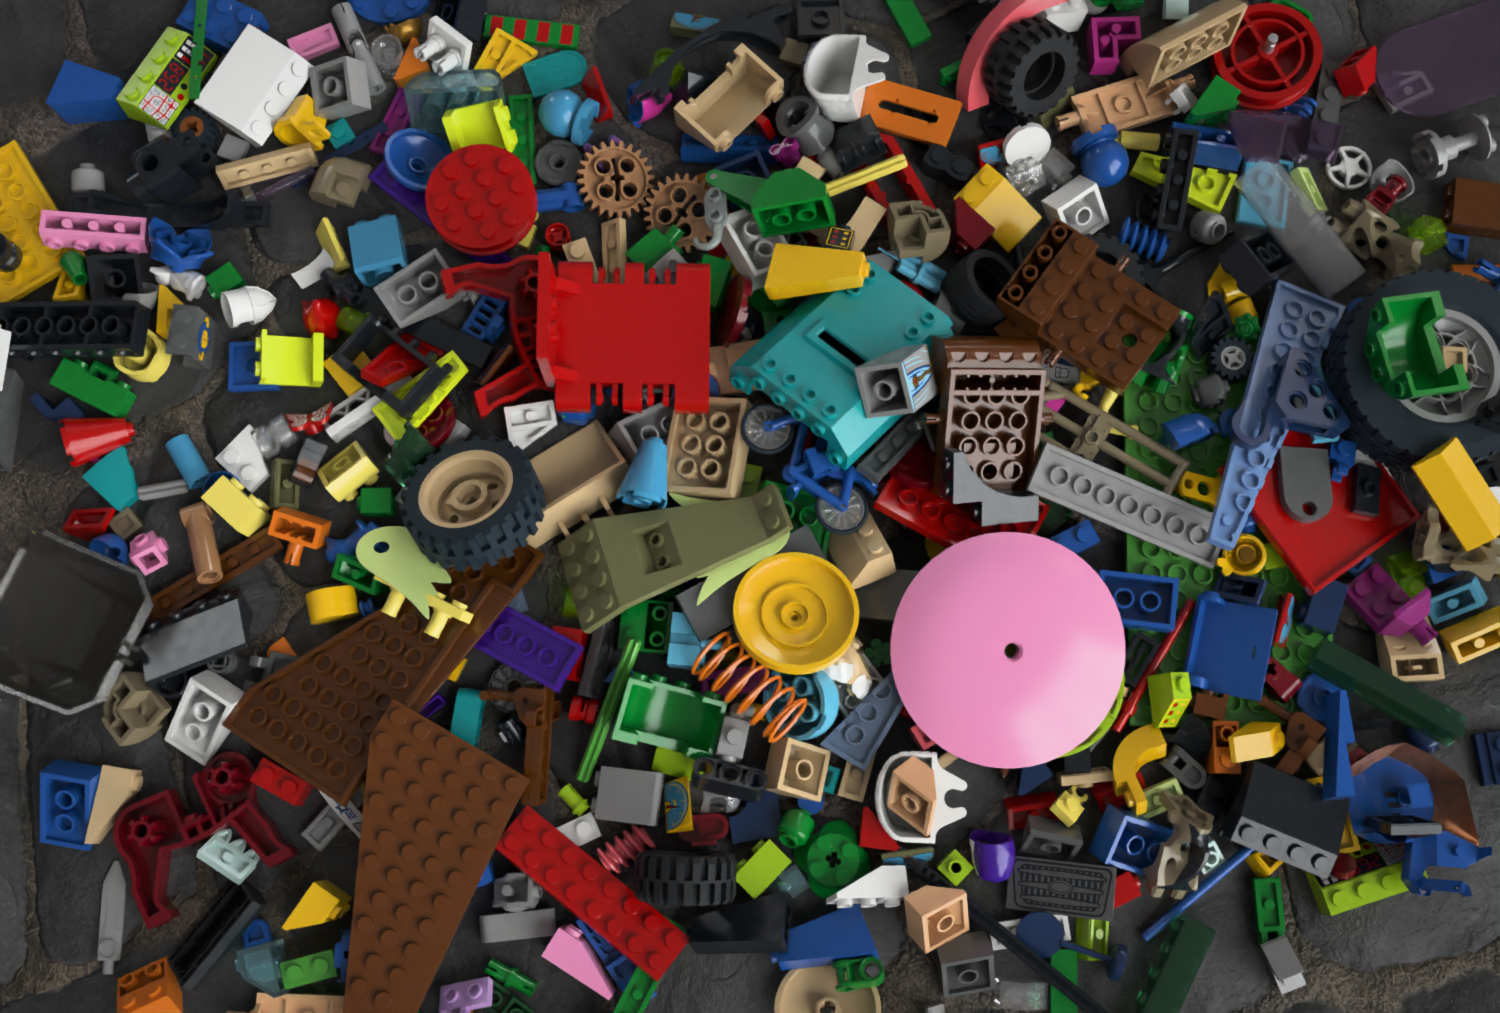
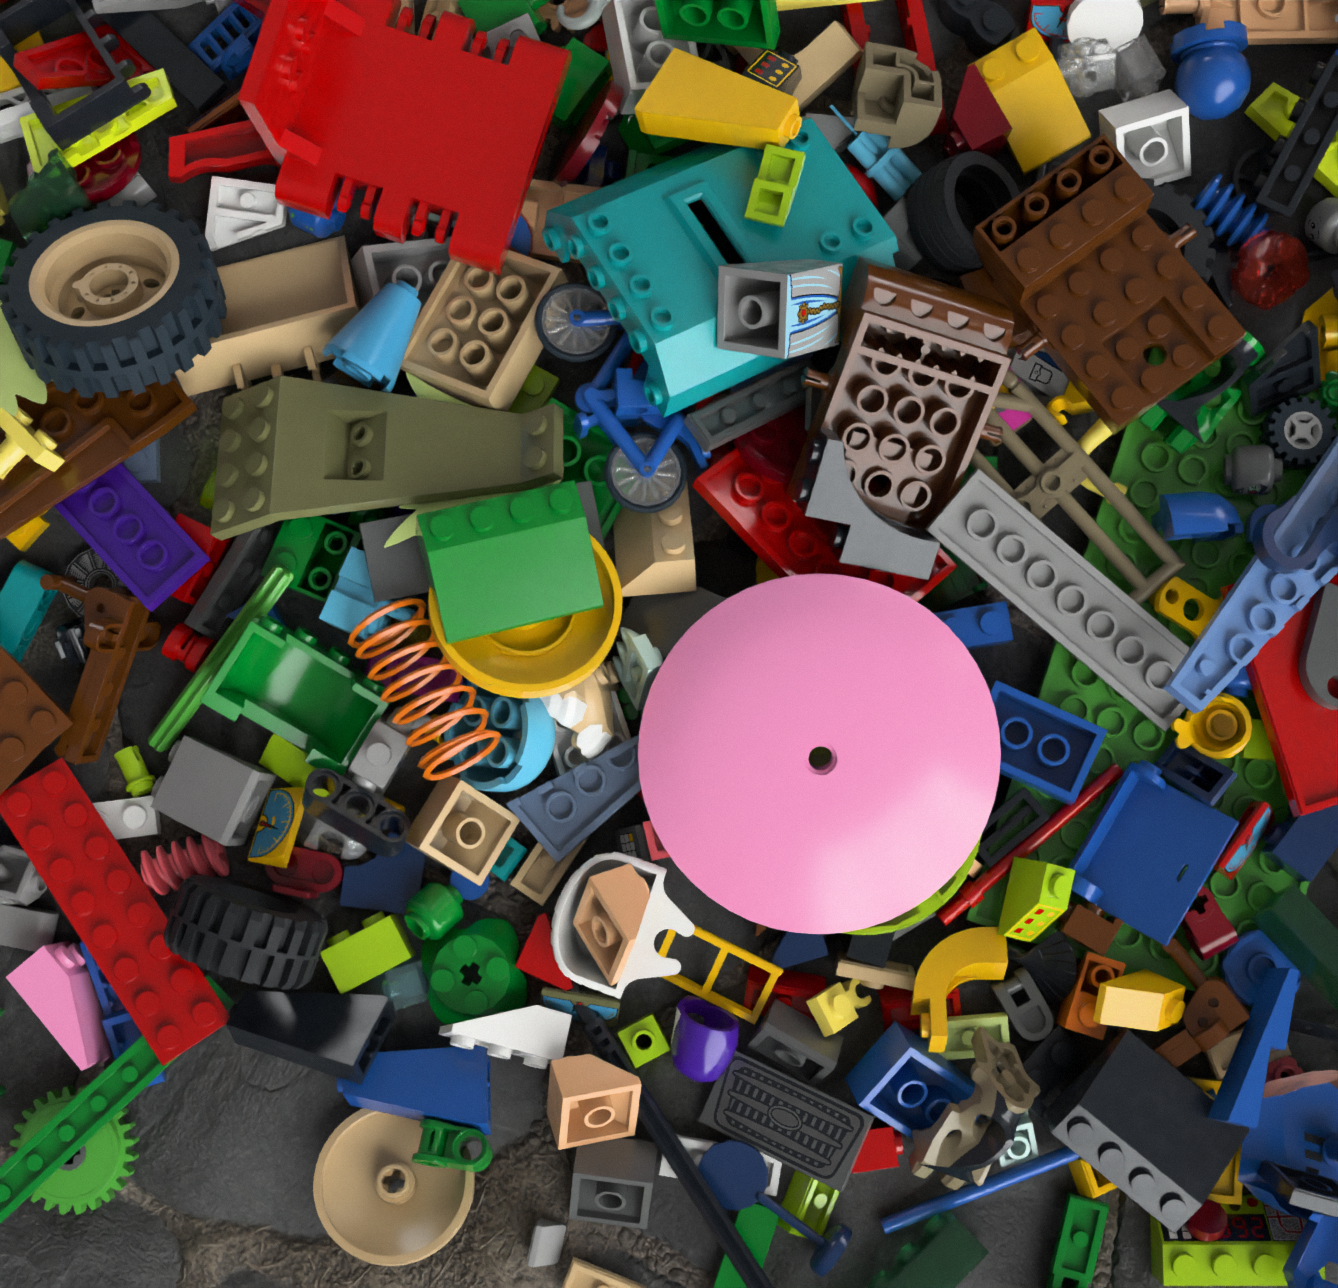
camera: 20 degrees right, 5 degrees up
(779, 589) = (509, 561): none -> slope
(867, 308) = (775, 186): none -> lime slope
(875, 632) = (637, 665): none -> light aqua plate
(905, 742) = (633, 842): none -> slope
(946, 759) = (678, 885): tan tile -> none
(988, 826) = (705, 991): none -> yellow window
(1021, 994) = (679, 1250): clear slope -> none
(1139, 140) = (1276, 65): light yellow cylinder -> none
(1190, 265) = (1288, 276): none -> clear red plate

